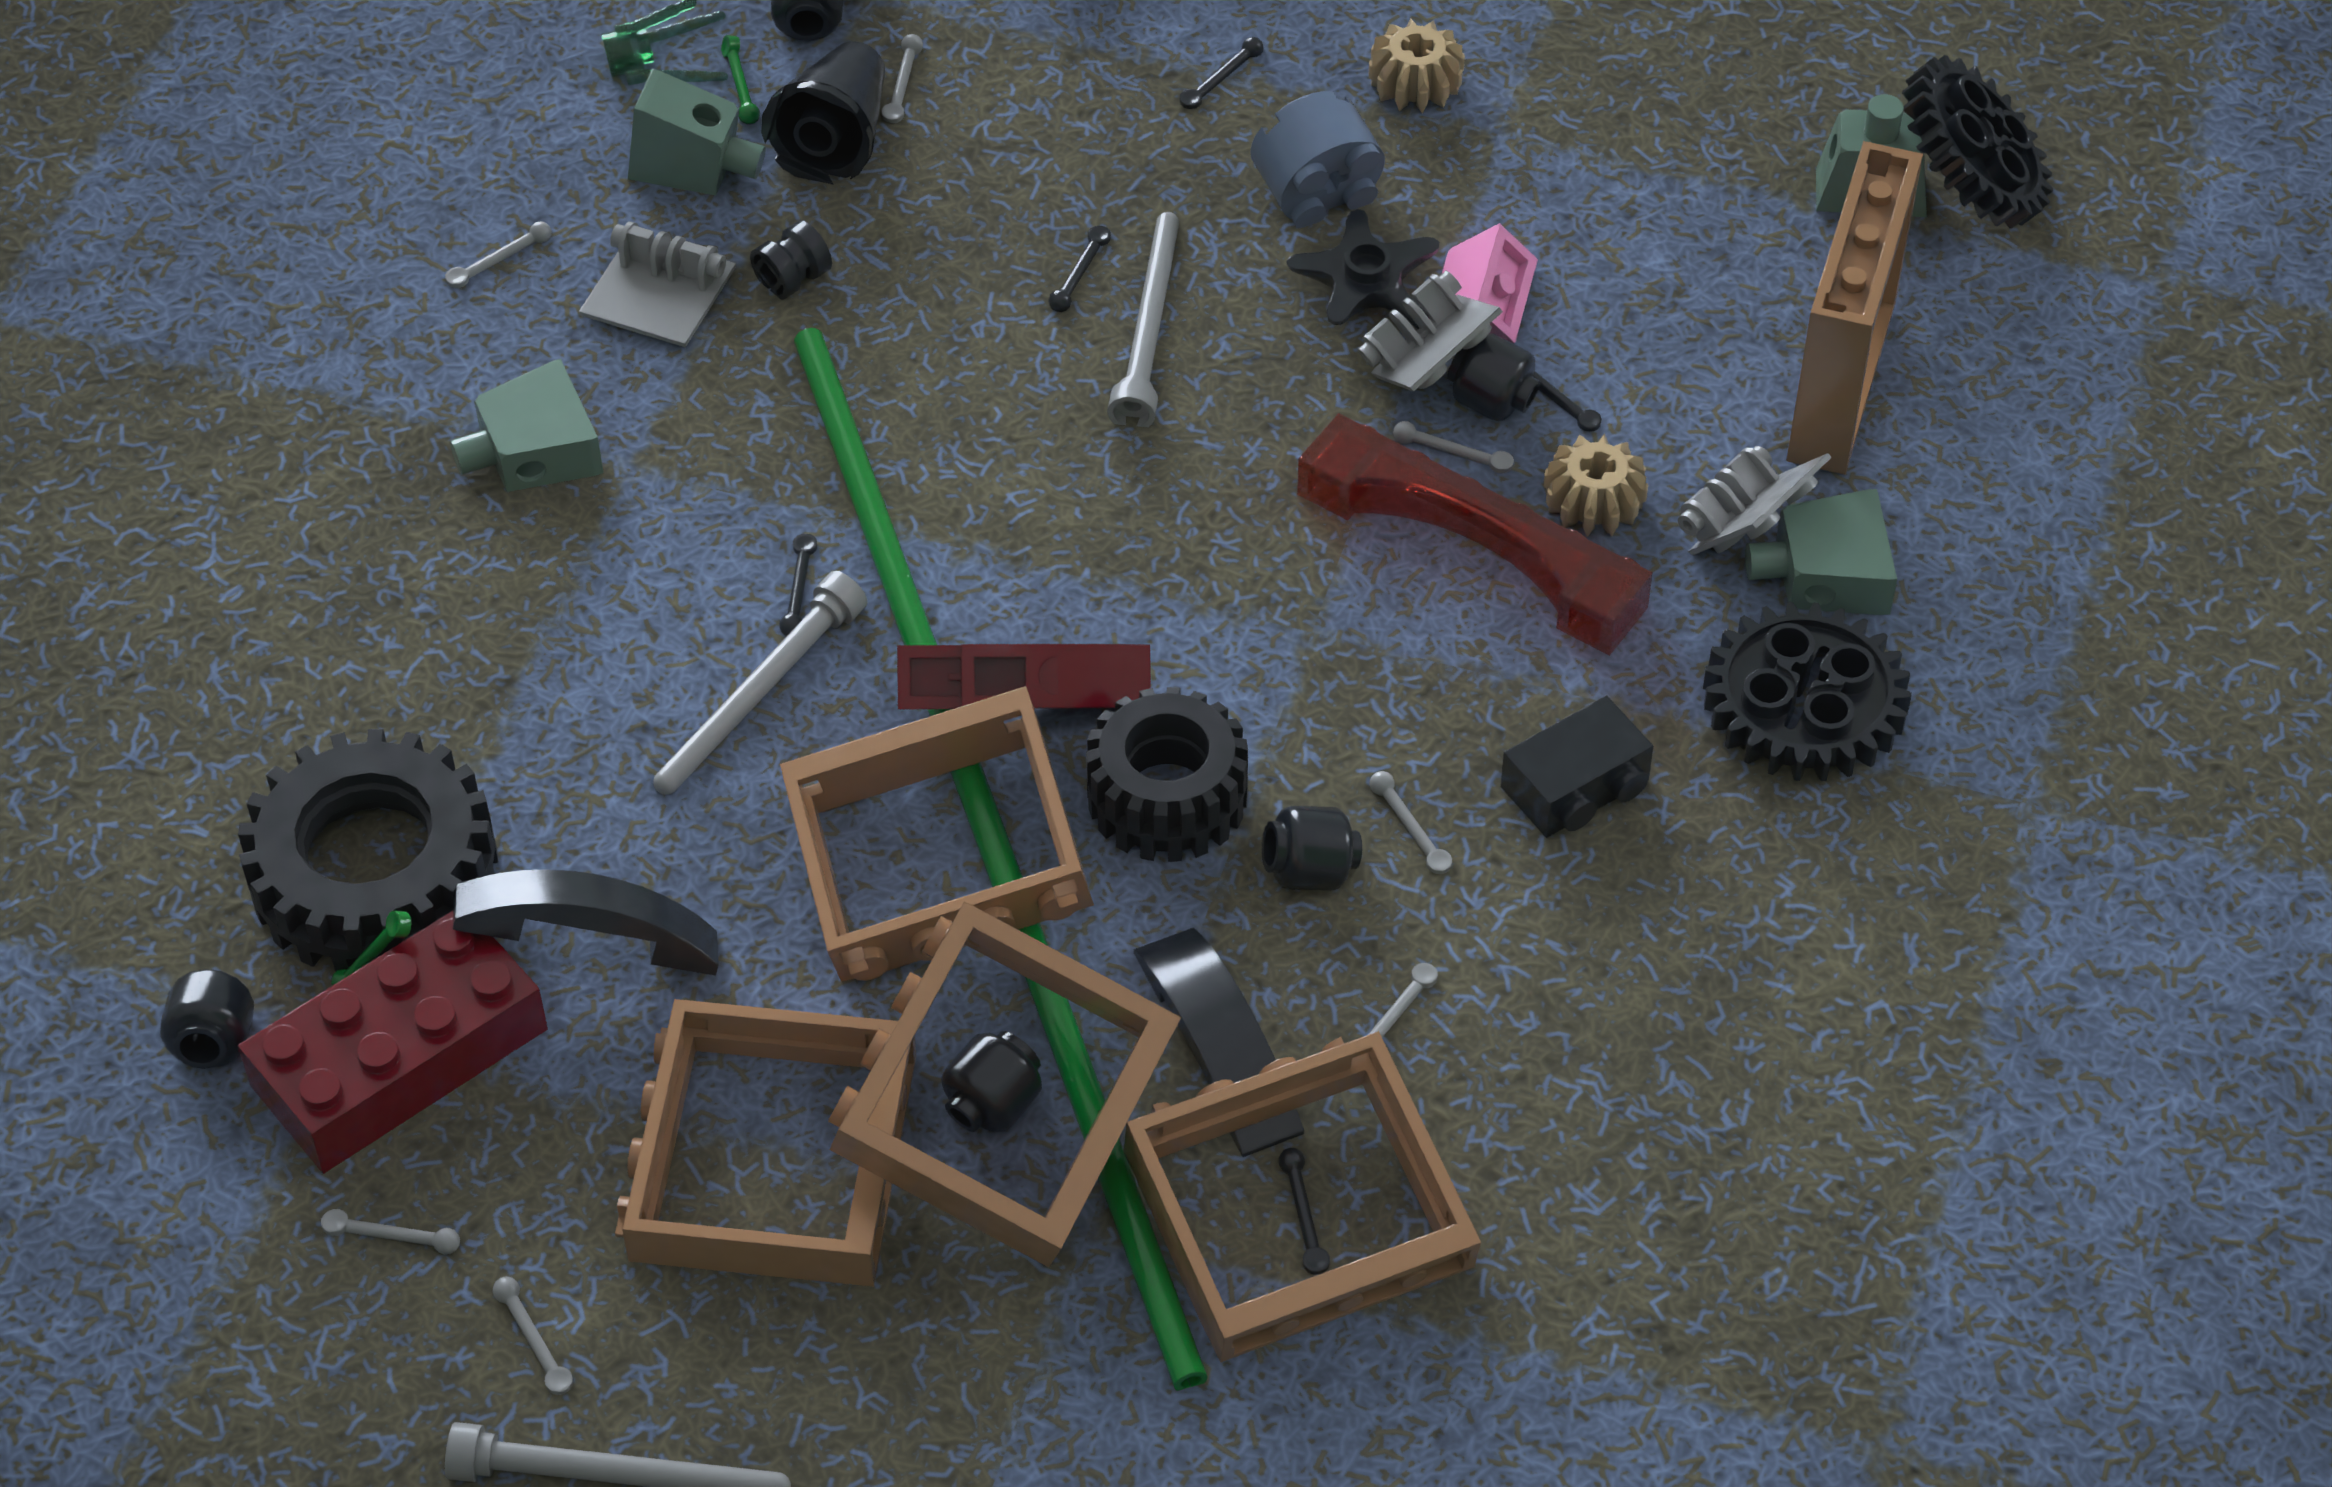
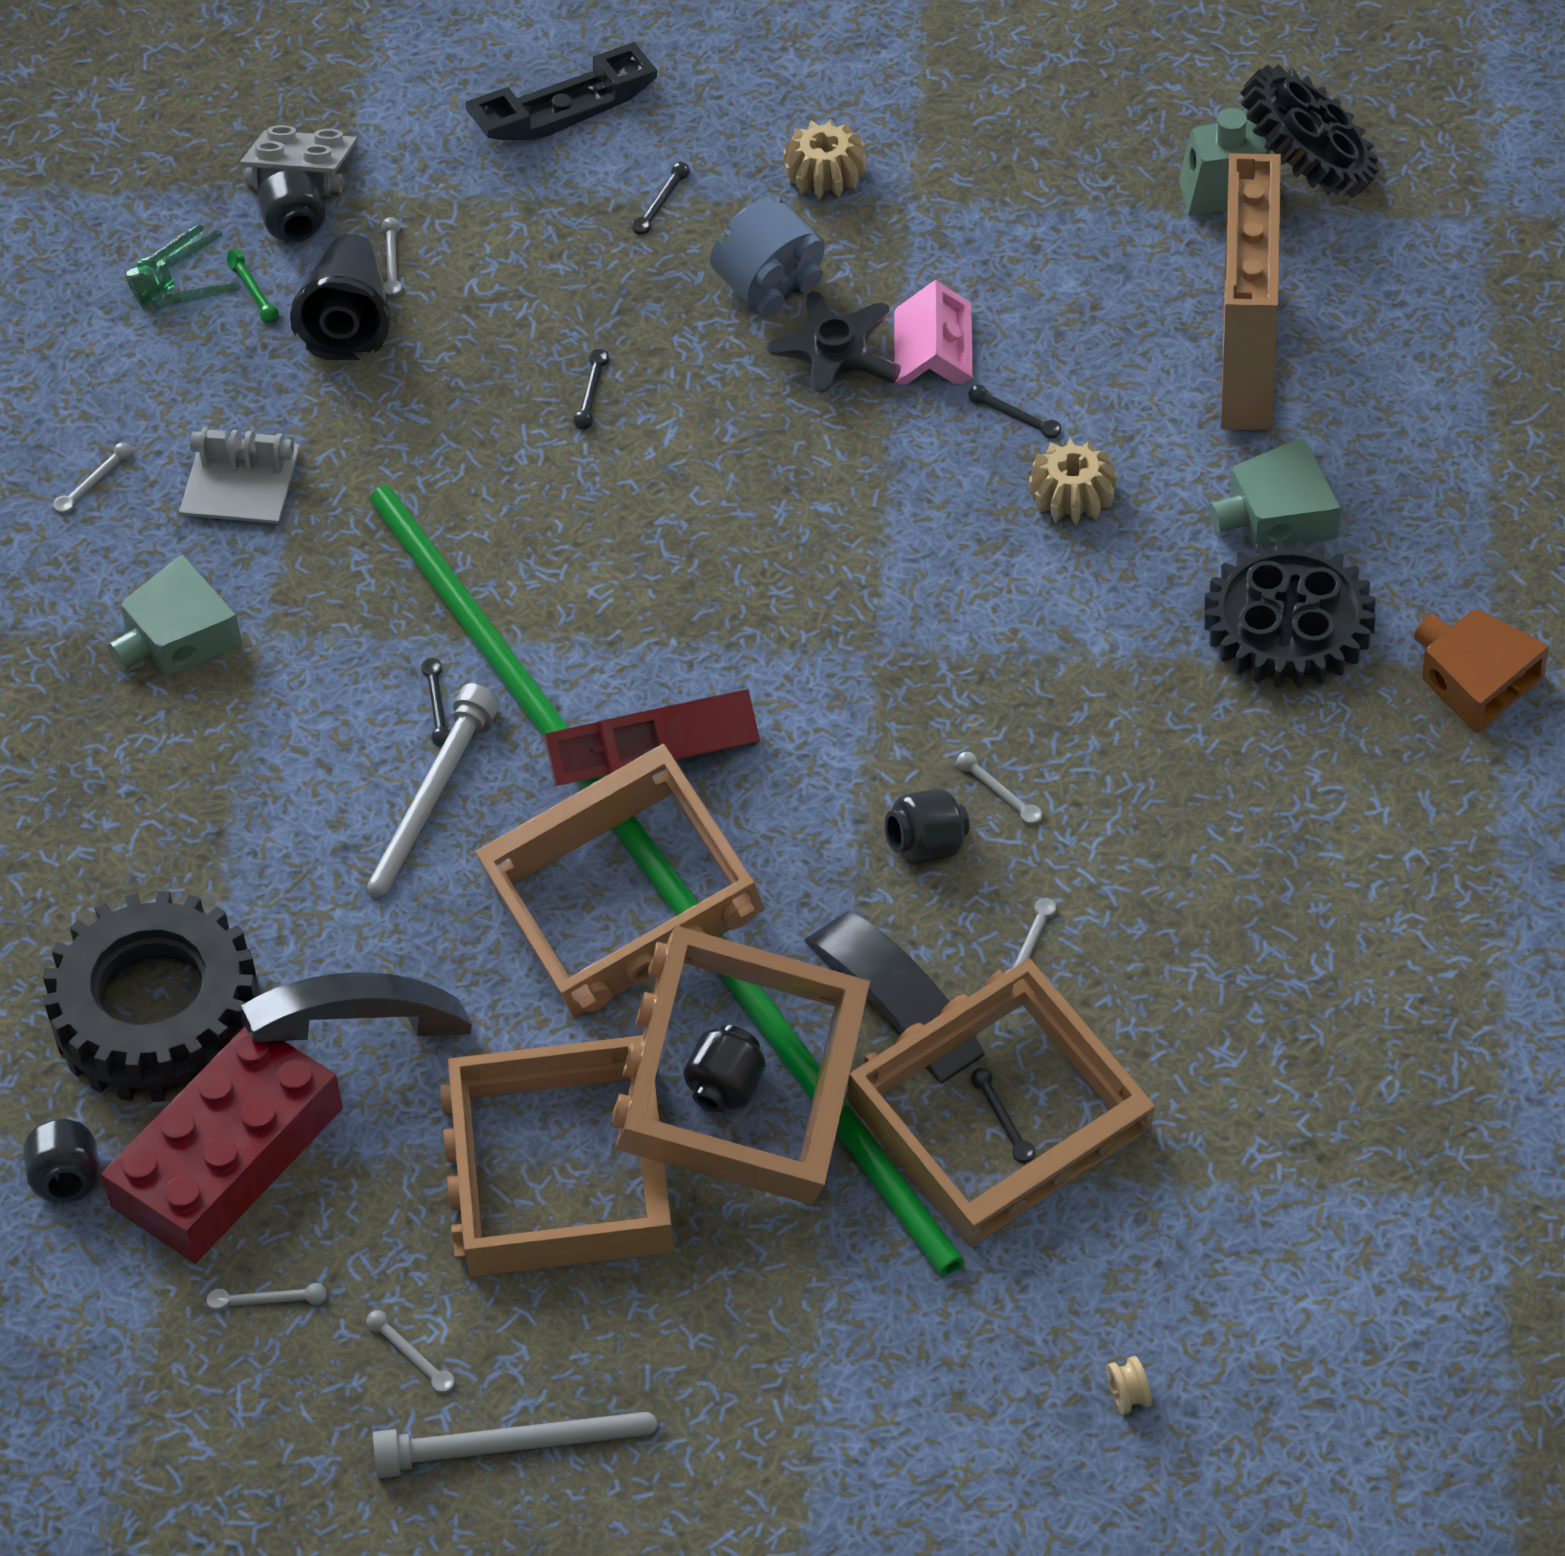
camera: 10 degrees left, 0 degrees up
(397, 925) = (204, 1048): green hinge -> none
(687, 138) = (230, 346): sand green torso -> none
(791, 259) = (345, 434): black wheel -> none
(1135, 393) = (670, 484): light grey piece -> none
(1174, 812) = (801, 822): black tyre -> none
(1364, 472) = (885, 510): clear red arch -> none
(1406, 433) = (987, 478): light grey hinge -> none
(1421, 358) = (915, 380): light grey hinge -> none
(1494, 378) = (965, 409): black head -> none
(1577, 767) = (1123, 715): black brick -> none
(1744, 499) = (1199, 467): light grey hinge -> none
(2016, 799) = (1479, 664): none -> dark orange torso

